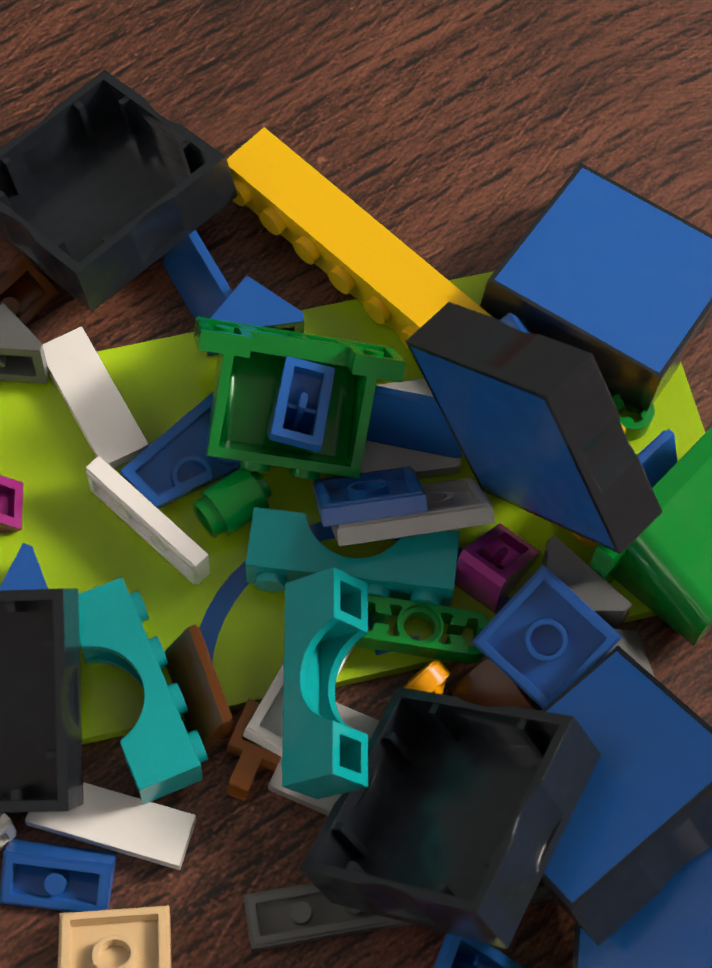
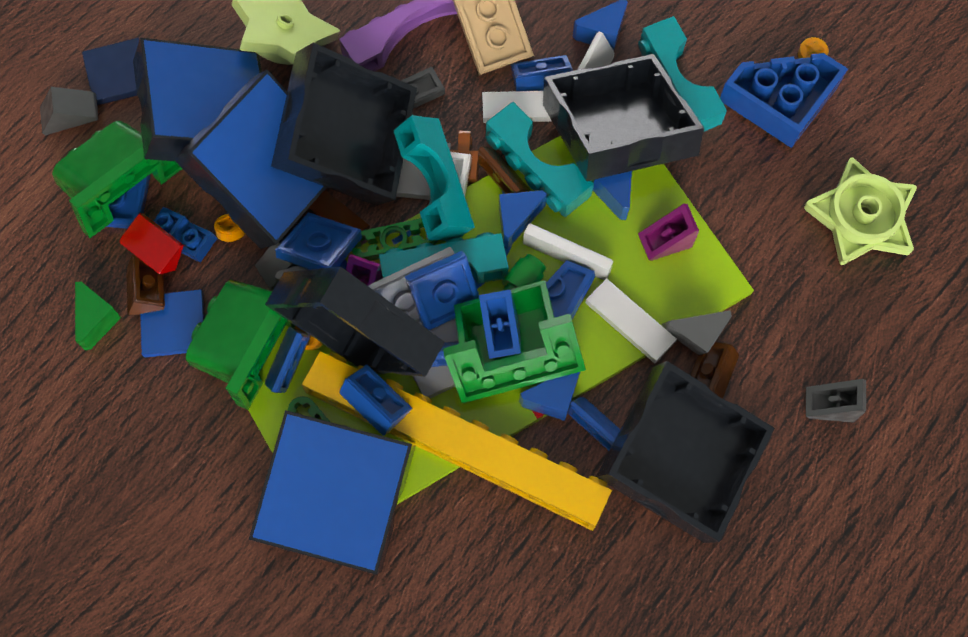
camera: 165 degrees right, 5 degrees up
(203, 601) = (517, 212): none -> blue slope
(429, 678) = (382, 215): light orange tile -> none

